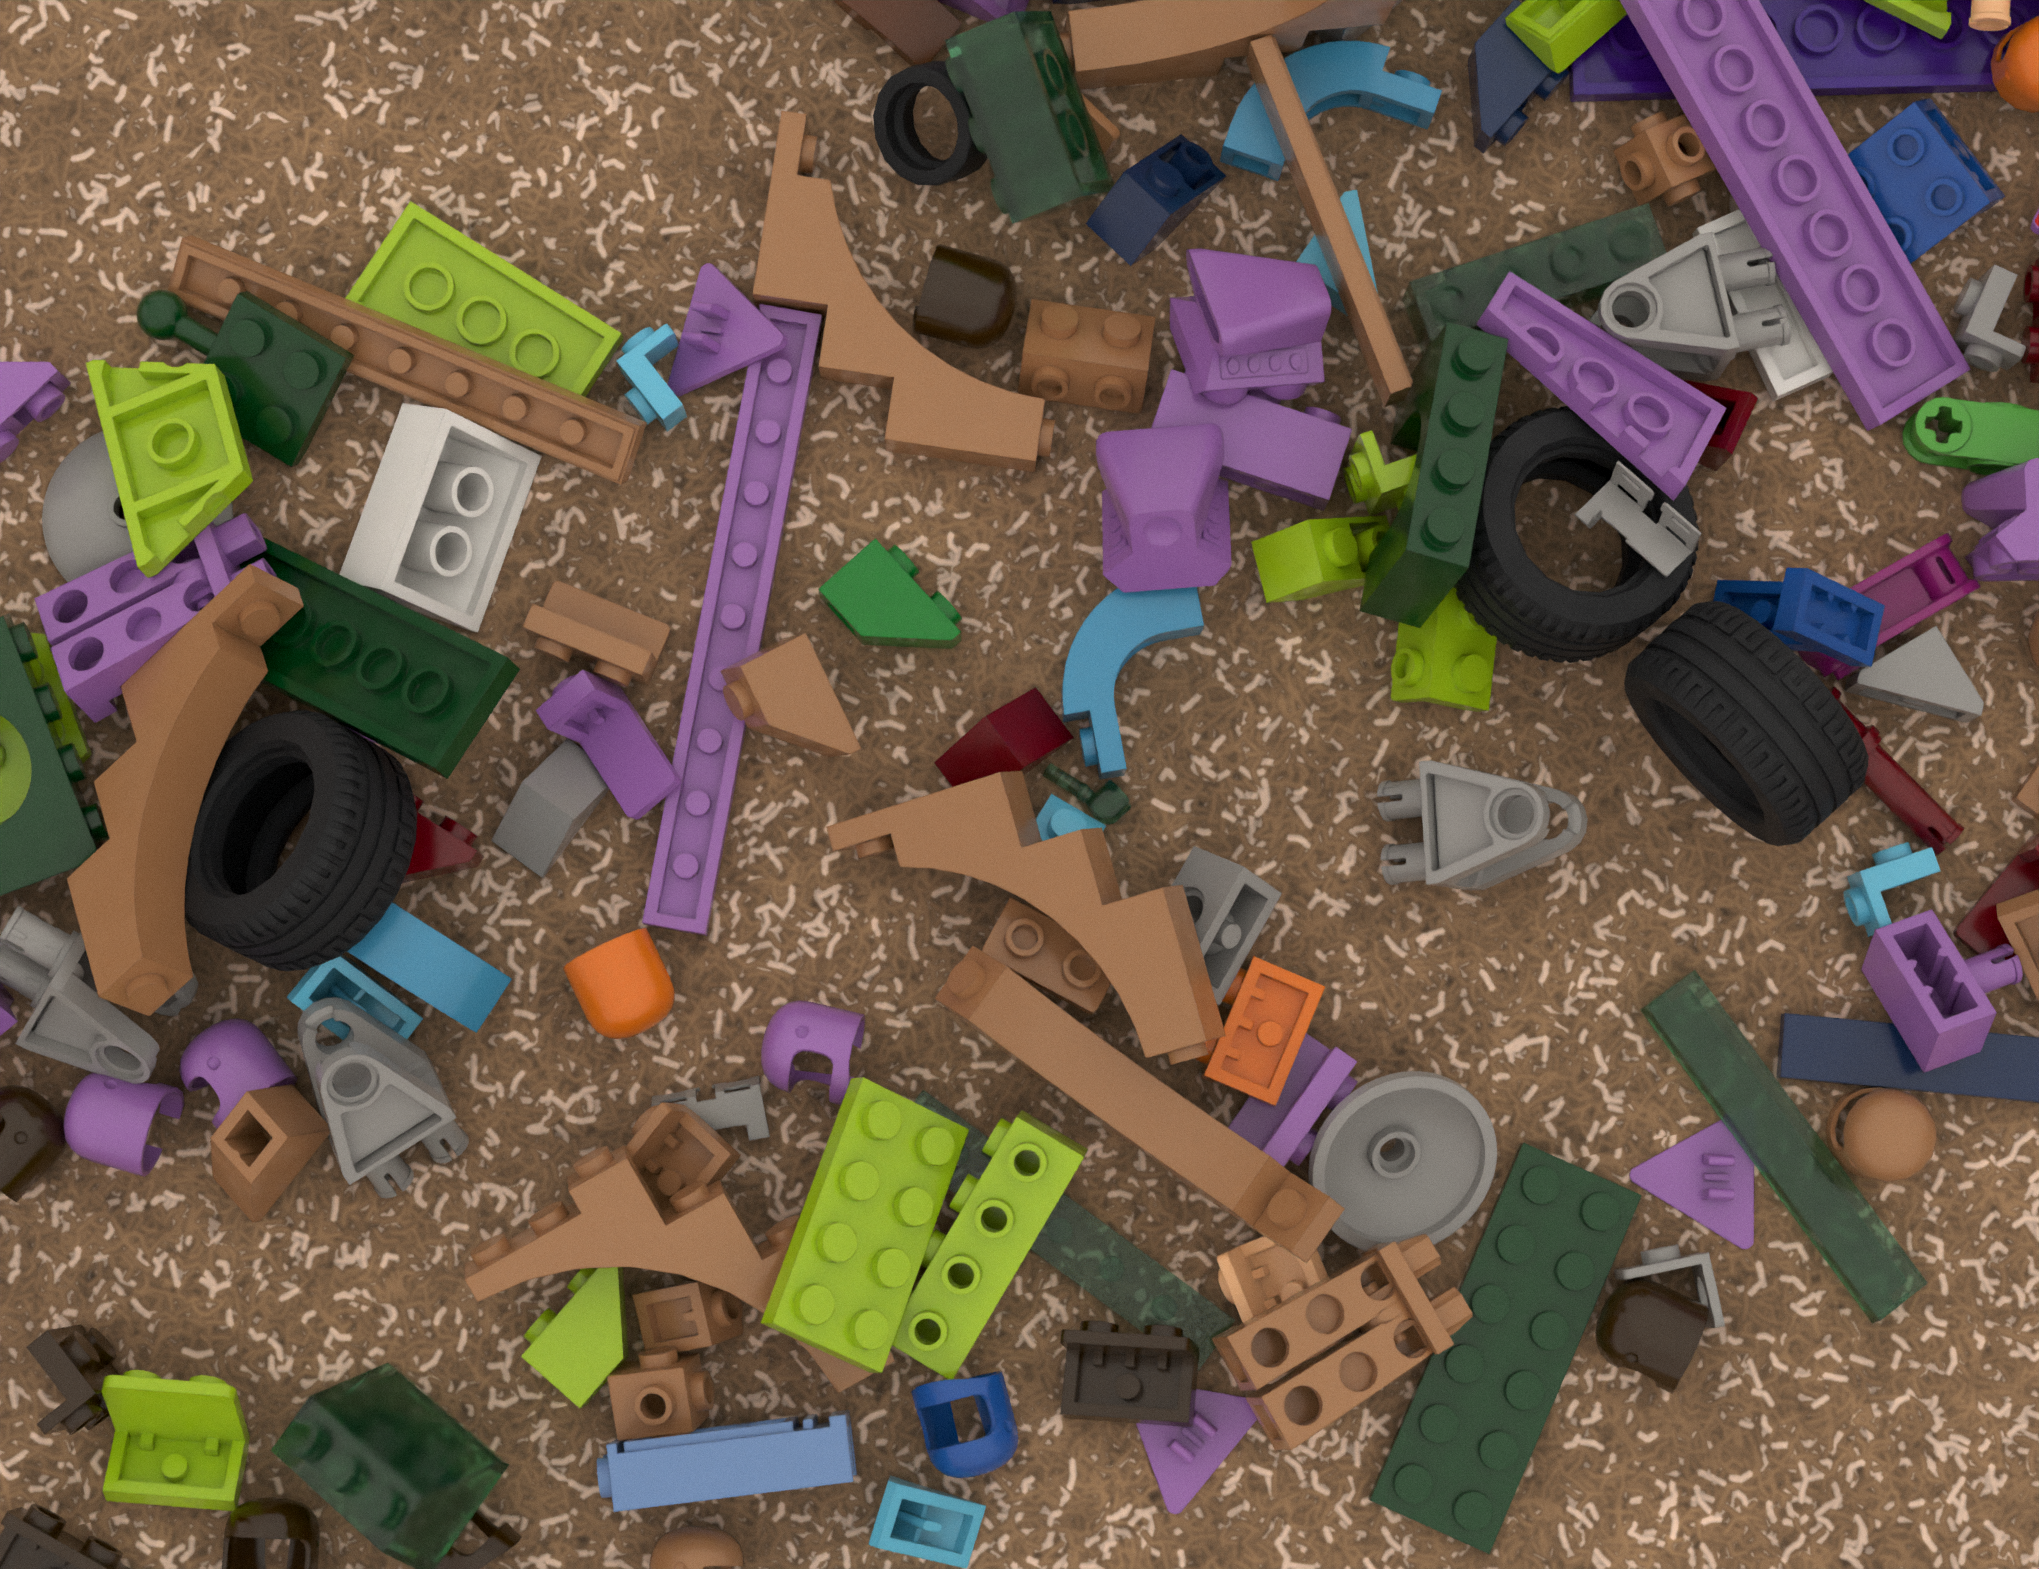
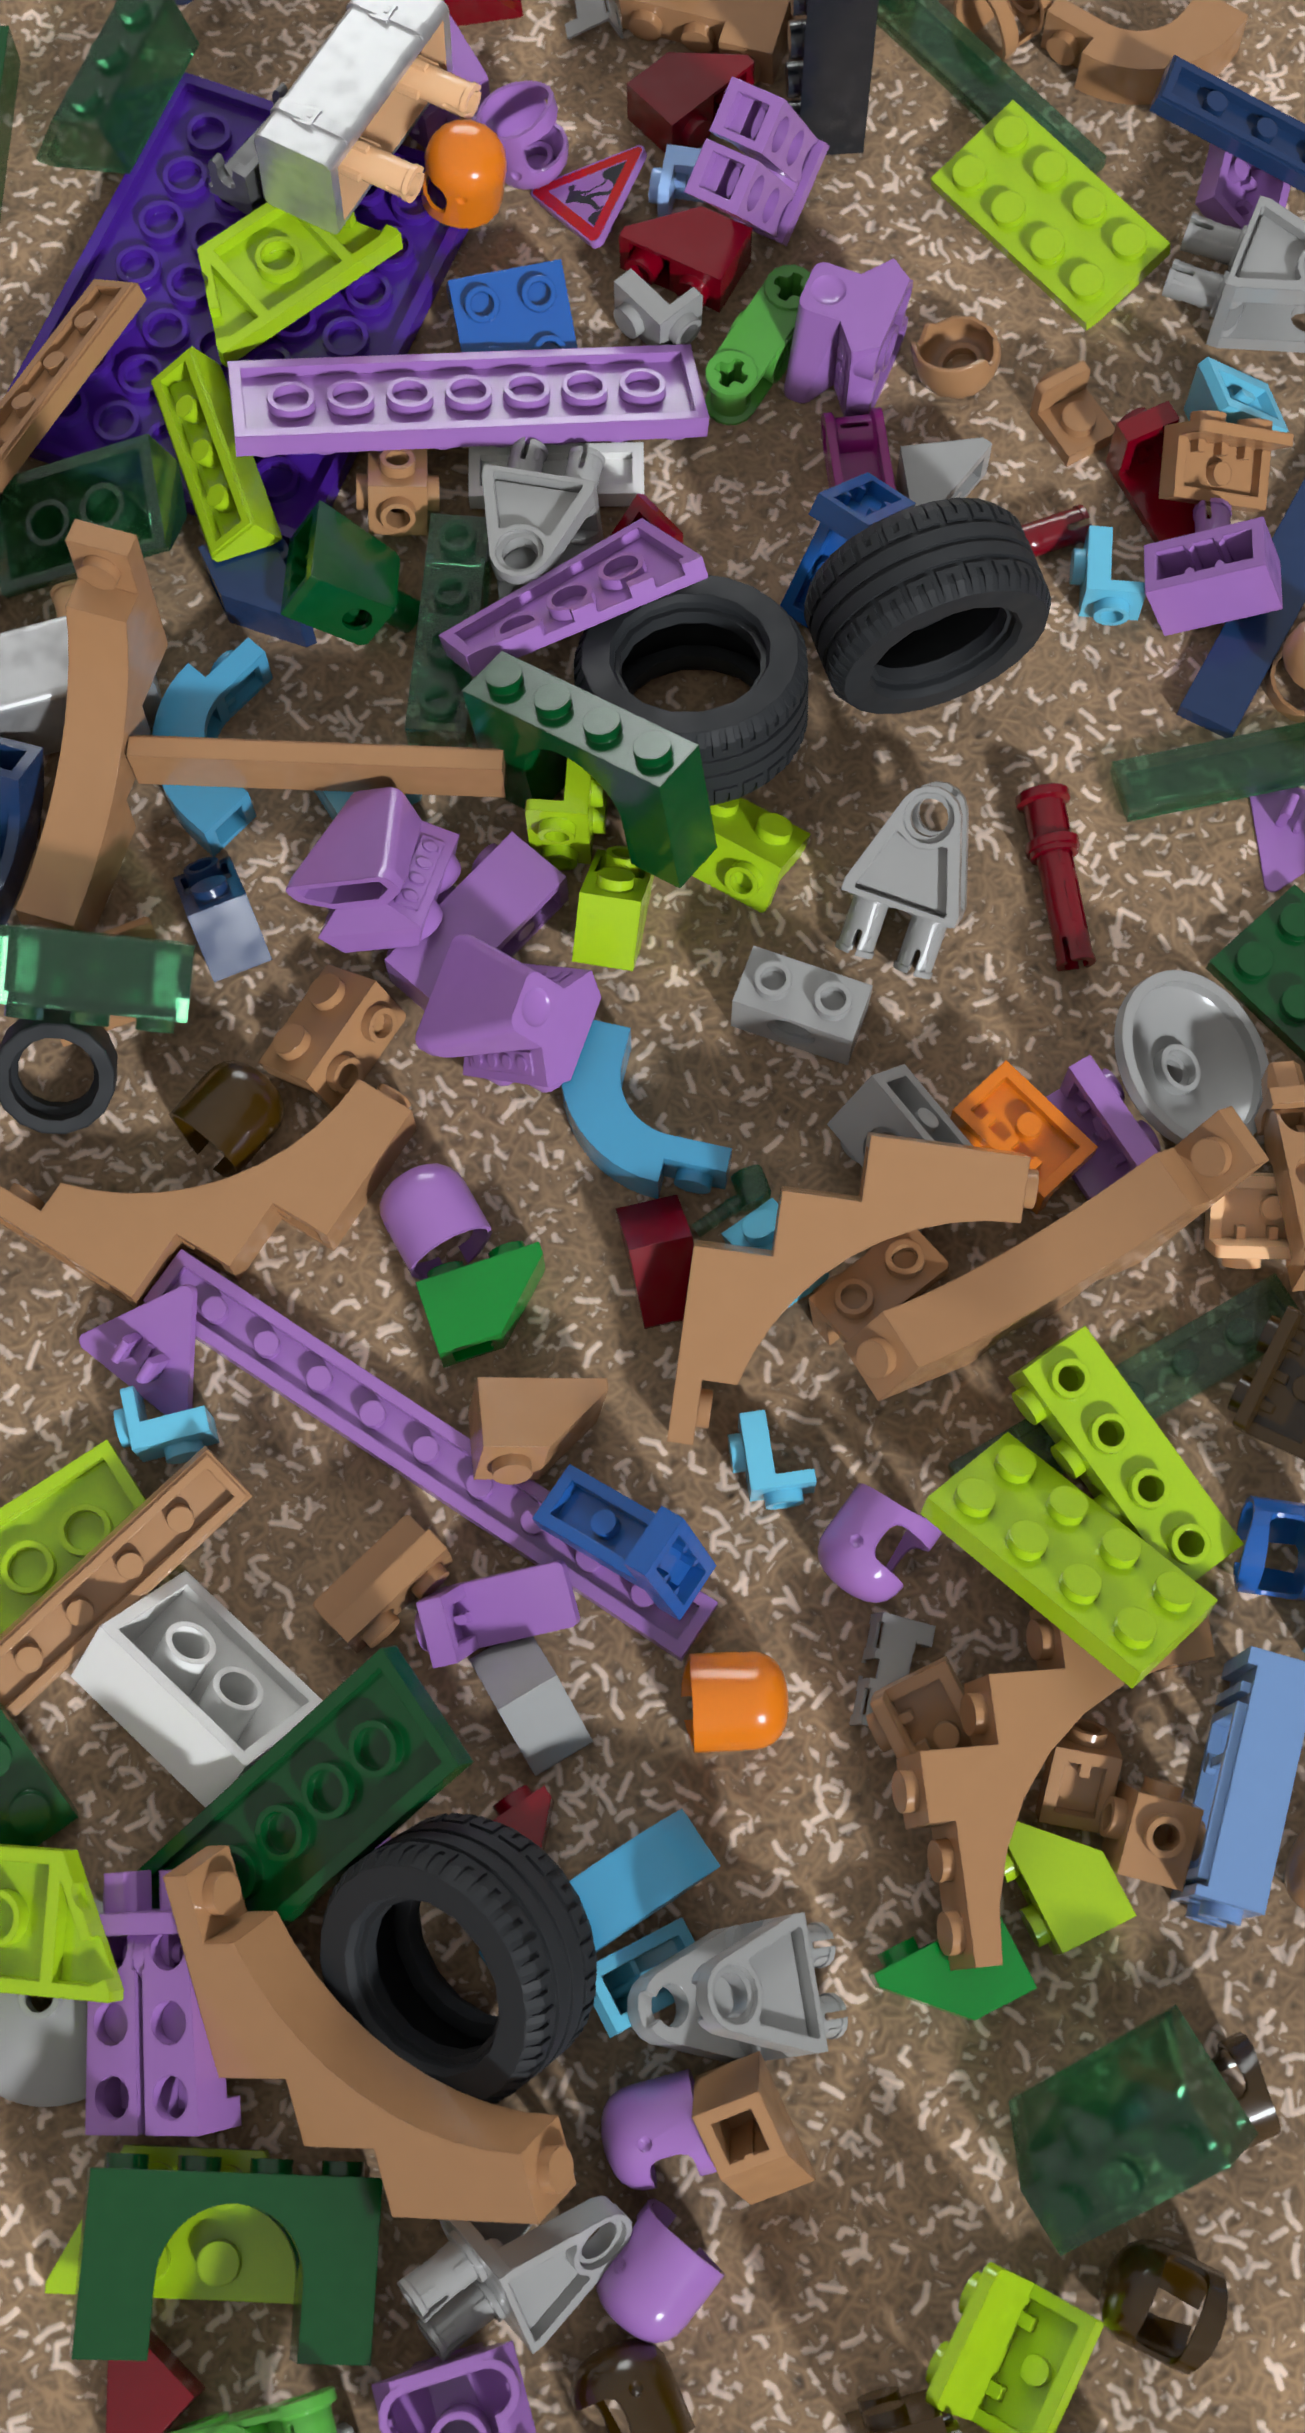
camera: 60 degrees left, 10 degrees down
(452, 1237) = (967, 1993): none -> green slope
(717, 828) = (630, 1540): none -> blue bracket
(852, 909) = (752, 1453): none -> medium azure bracket
(948, 521) = (428, 1209): none -> medium lavender helmet
(1302, 773) = (800, 1005): none -> light grey brick
(1543, 151) = (344, 580): none -> dark green torso
(1573, 949) = (1053, 852): none -> dark red pin
(1642, 534) = (724, 619): light grey piece -> none

